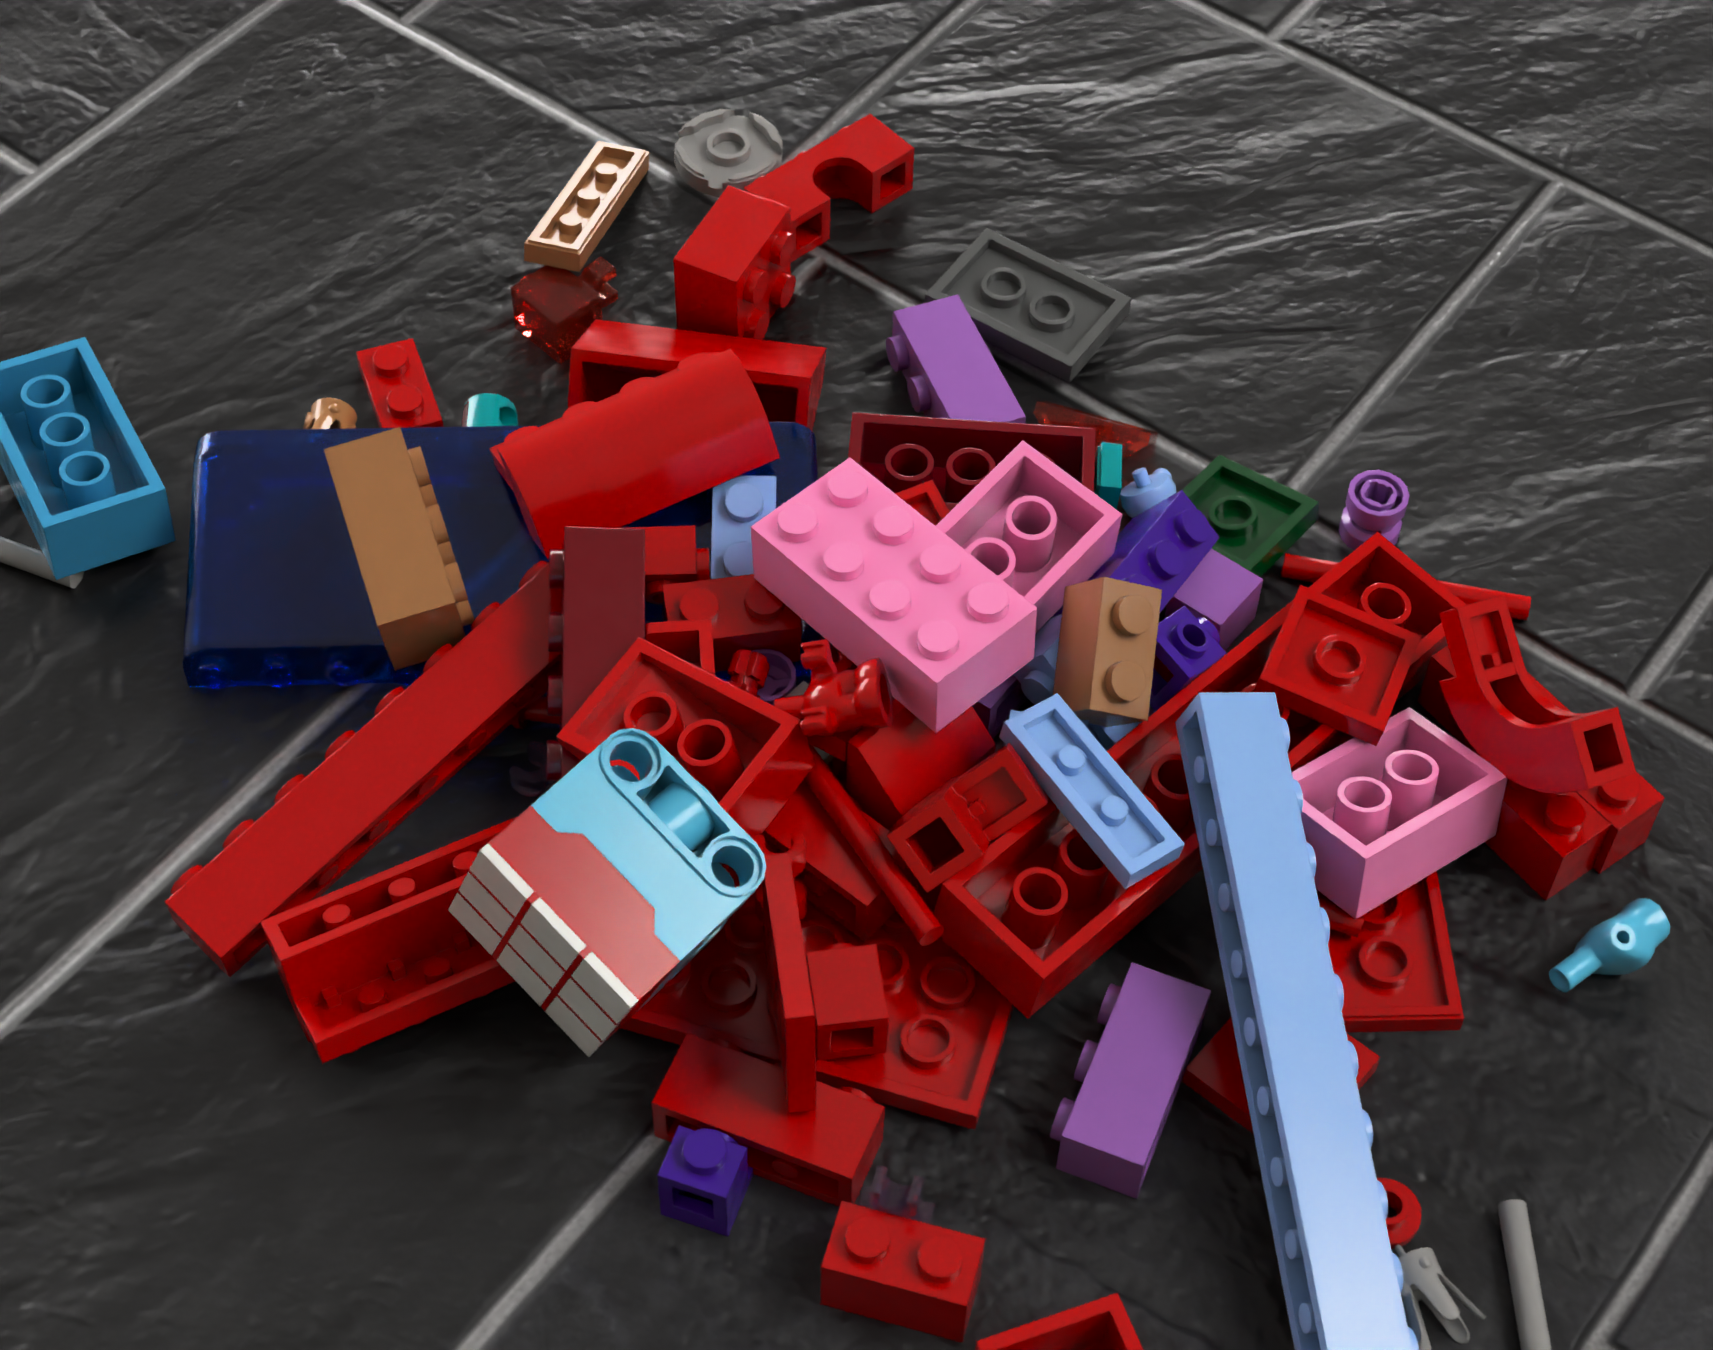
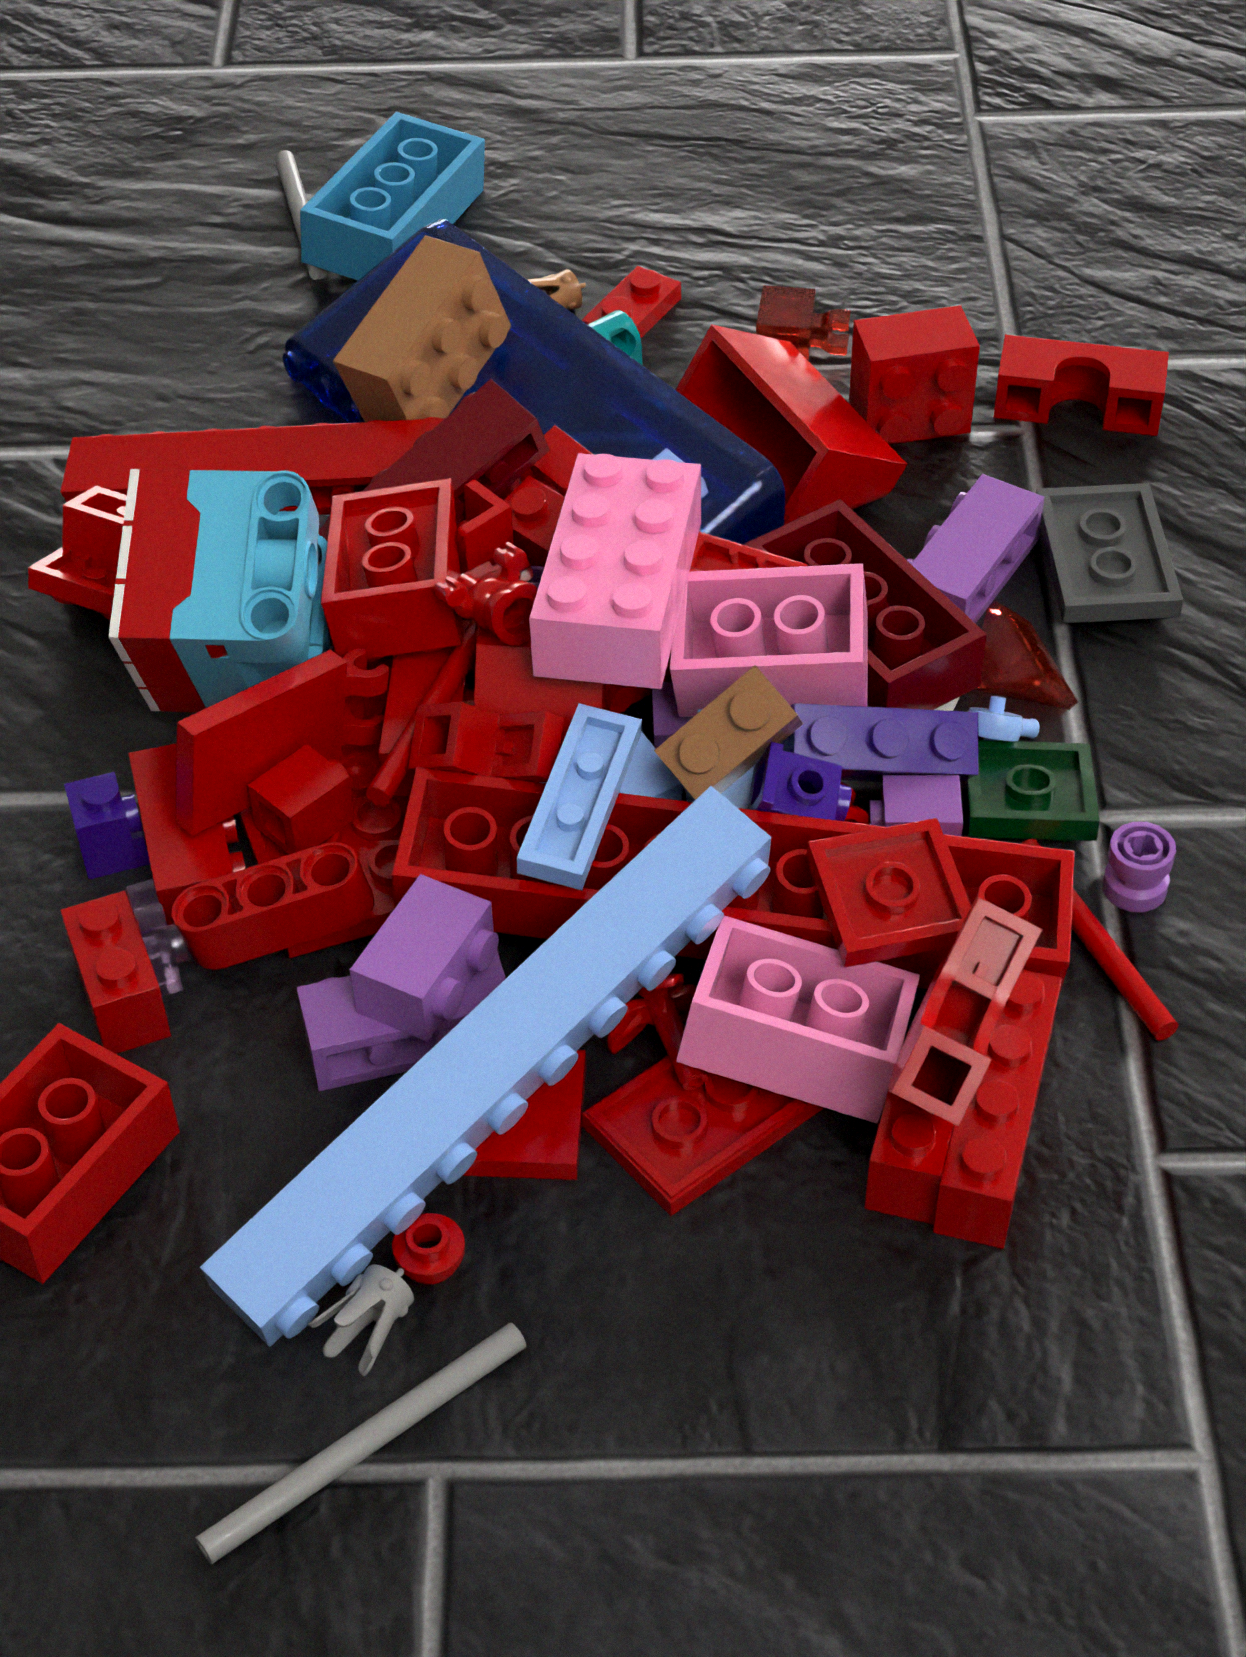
camera: 55 degrees right, 5 degrees down
(586, 206) = (895, 279): medium nougat tile -> none
(637, 448) = (632, 390): red brick -> none
(726, 150) = (1059, 314): light grey tile -> none
(961, 1064) = (273, 905): none -> red beam
(1108, 472) = (971, 685): teal tile -> none
(1136, 1016) = (424, 958): none -> medium lavender brick
(1615, 945) = (840, 1262): medium azure piece -> none

